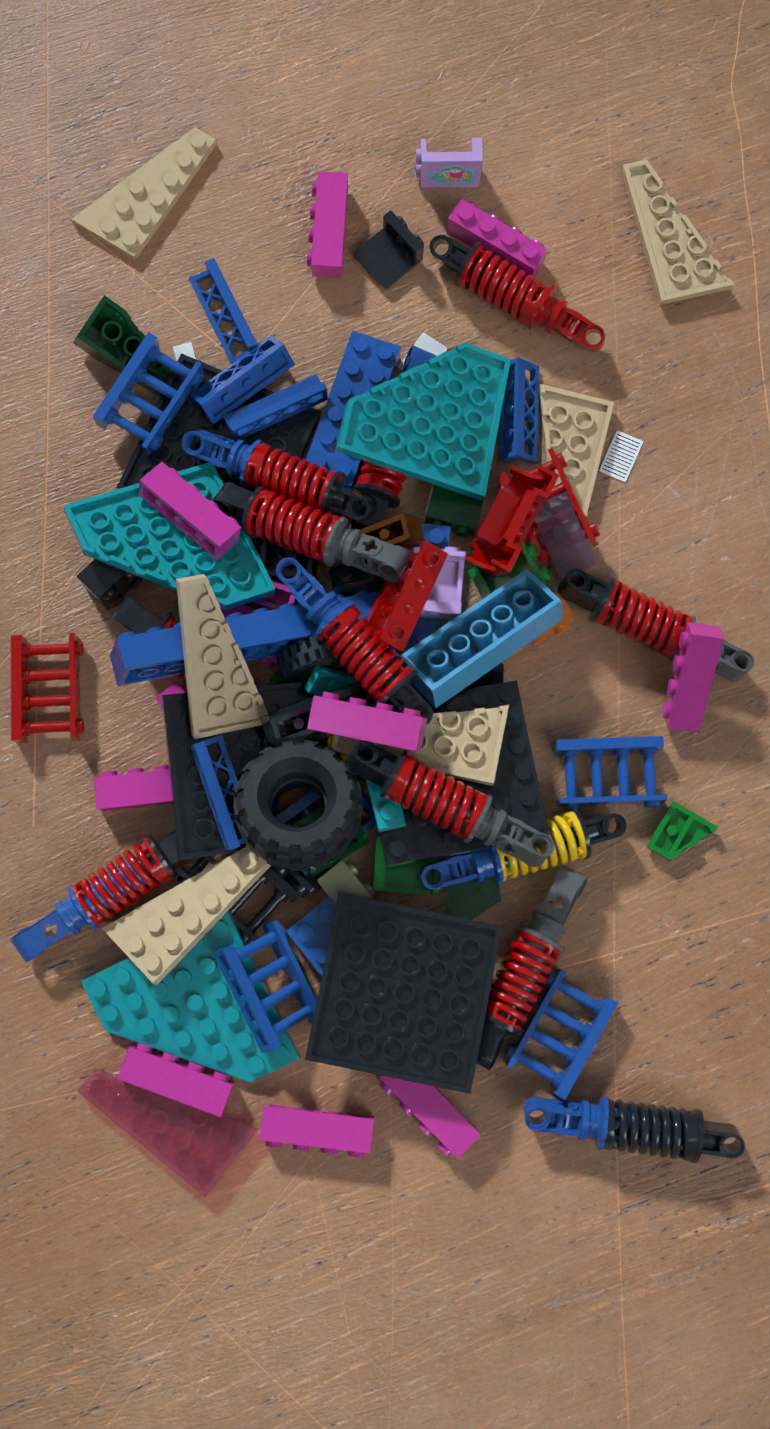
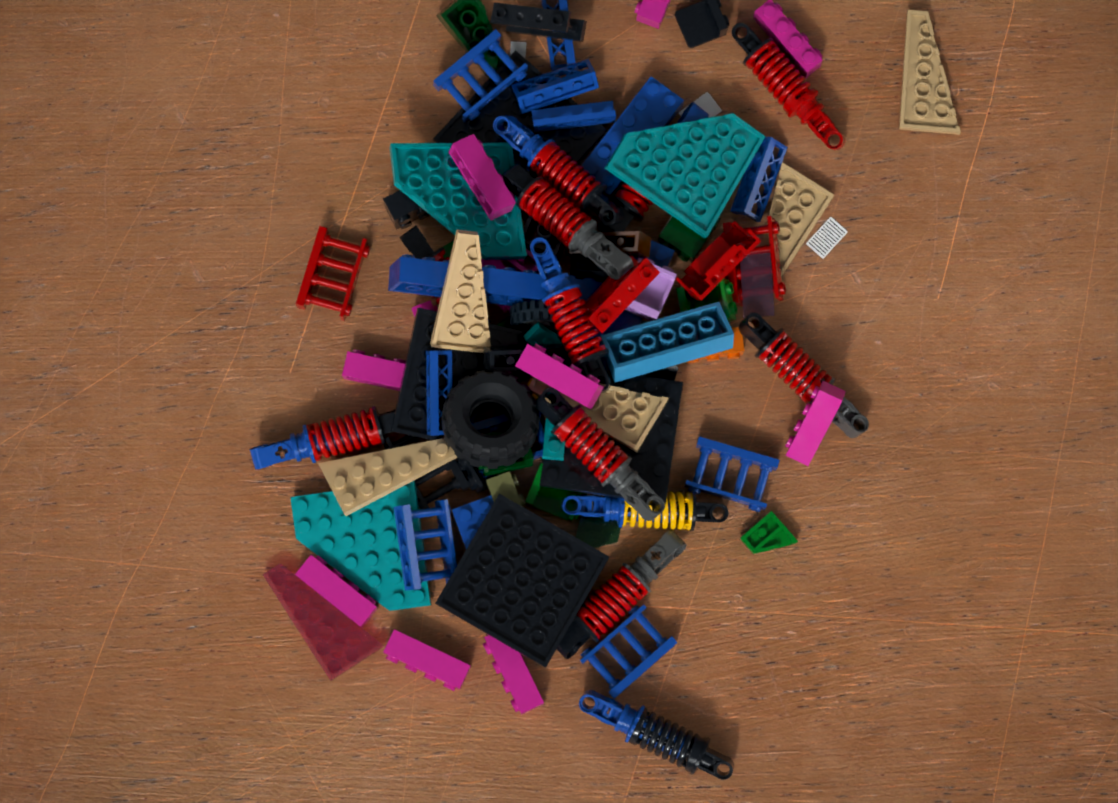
camera: 20 degrees right, 0 degrees up
(197, 306) = (538, 22): none -> black fence

